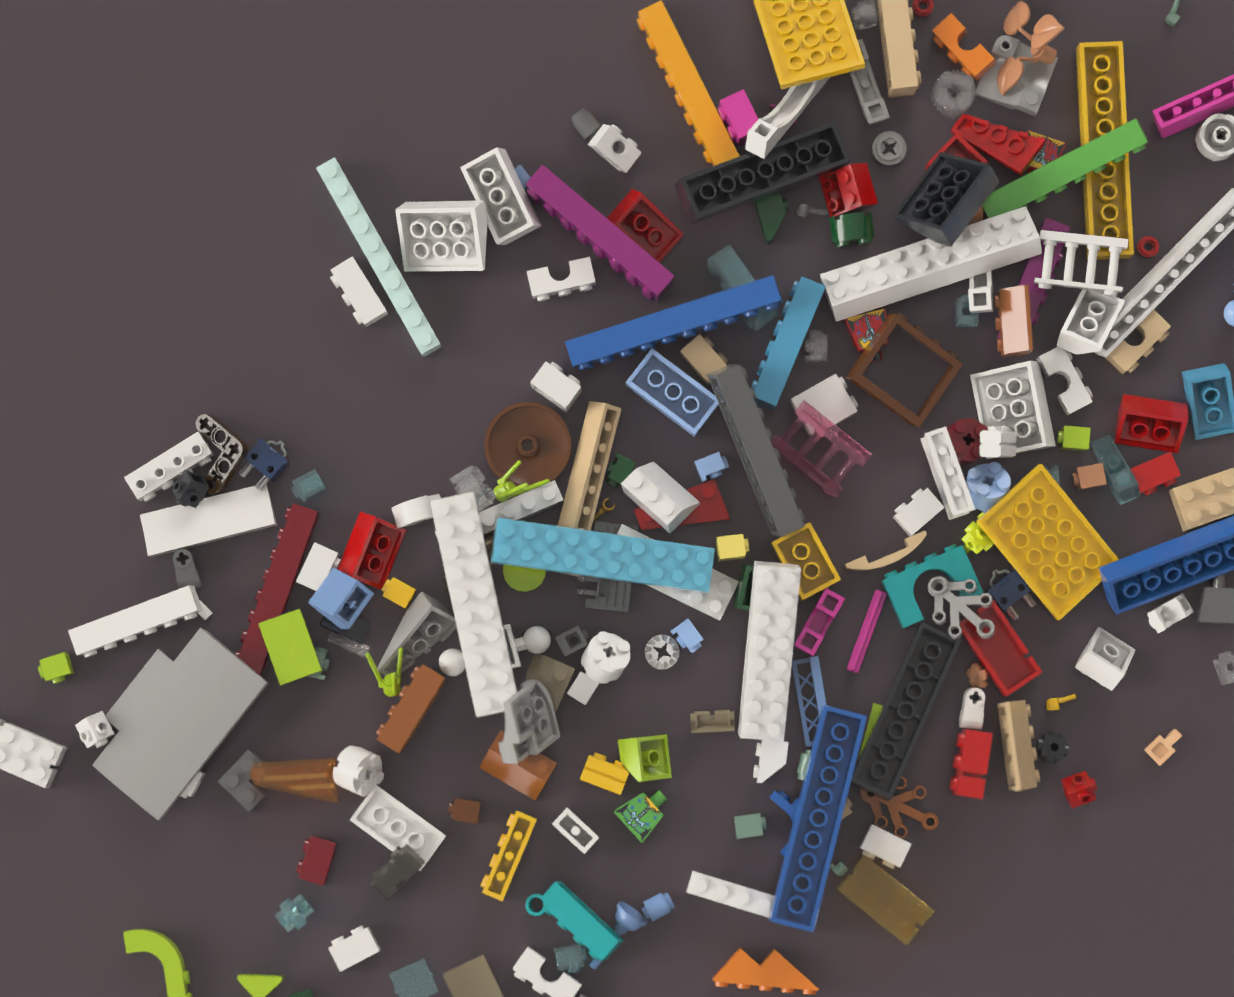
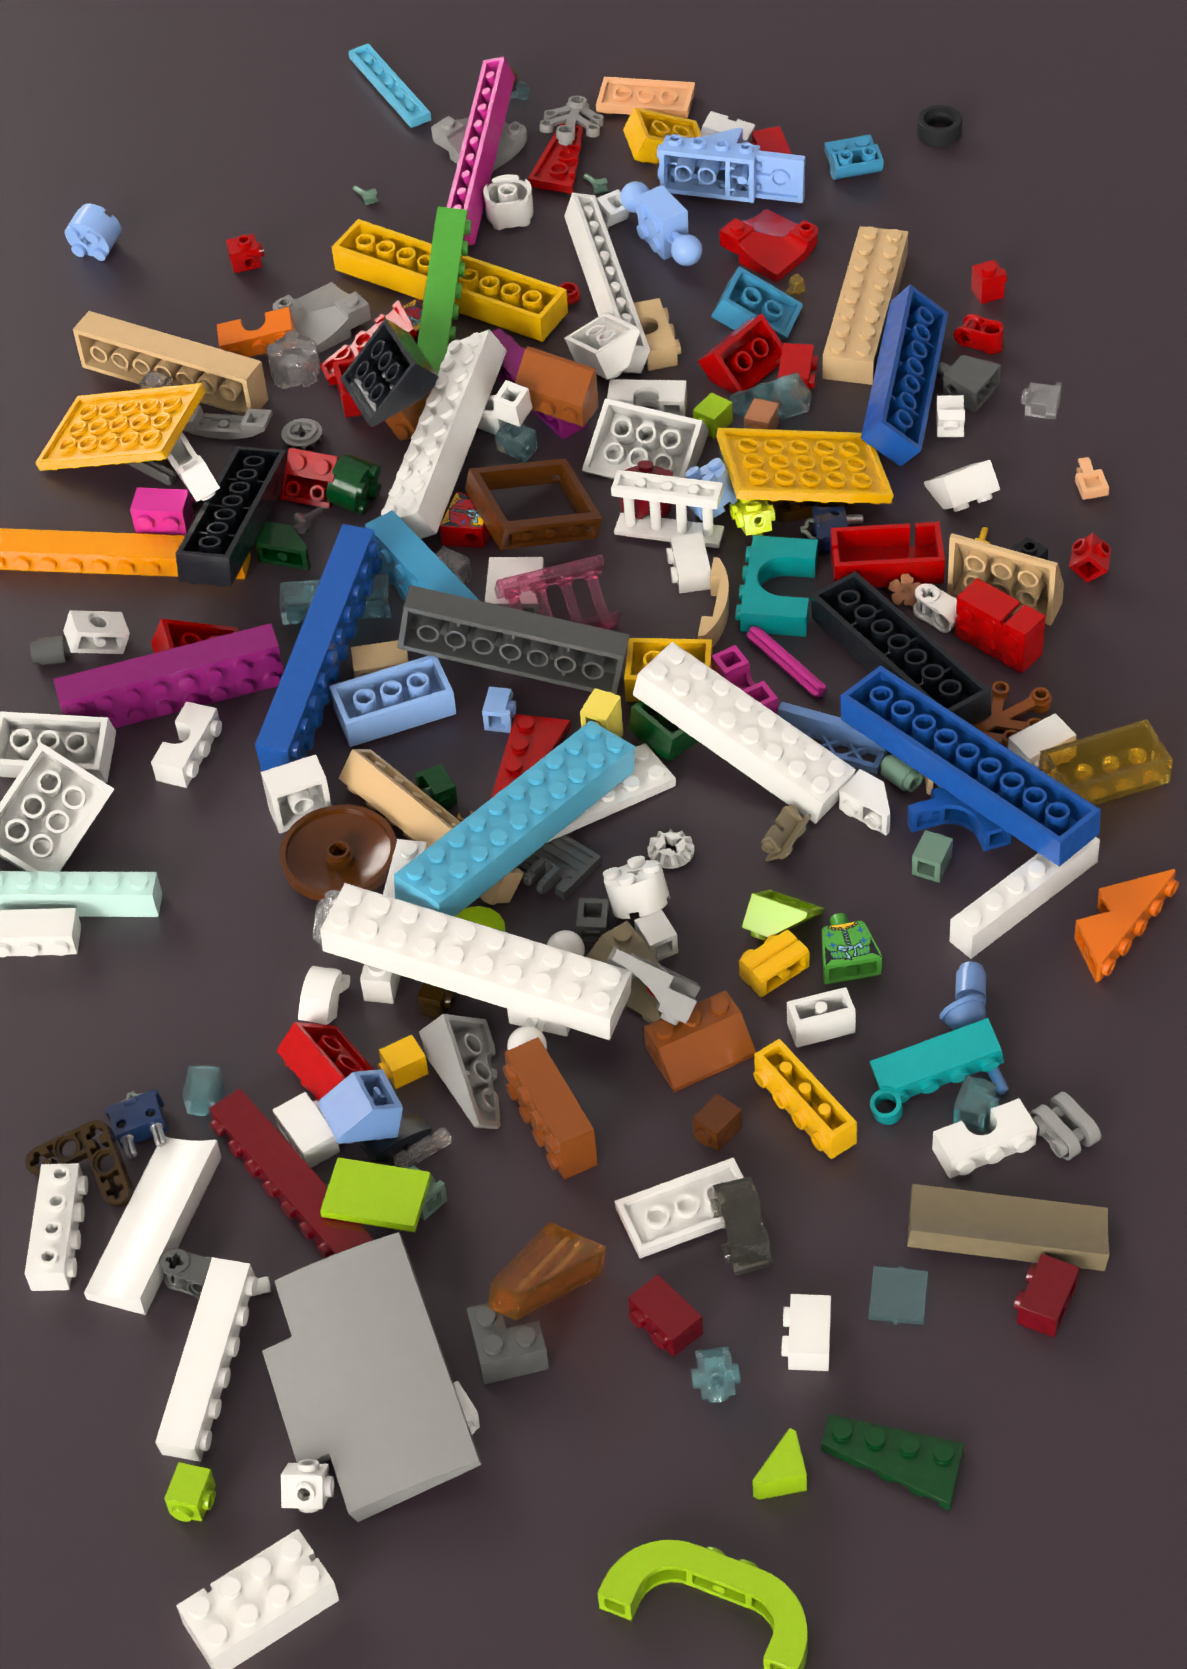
camera: 55 degrees left, 35 degrees down
(190, 489) = (100, 1209): black brick -> none
(358, 770) = (583, 1199): white brick -> none
(392, 681) = (504, 1122): lime plant -> none
(507, 490) = (373, 883): lime plant -> none
(659, 495) = (494, 762): white slope -> none
(688, 636) = (670, 811): light blue brick -> none
(958, 604) = (790, 567): light grey plant -> none
(998, 442) = (669, 453): white brick -> none
(1044, 31) = (312, 307): nougat plant -> none
(1093, 244) = (532, 301): white fence -> none

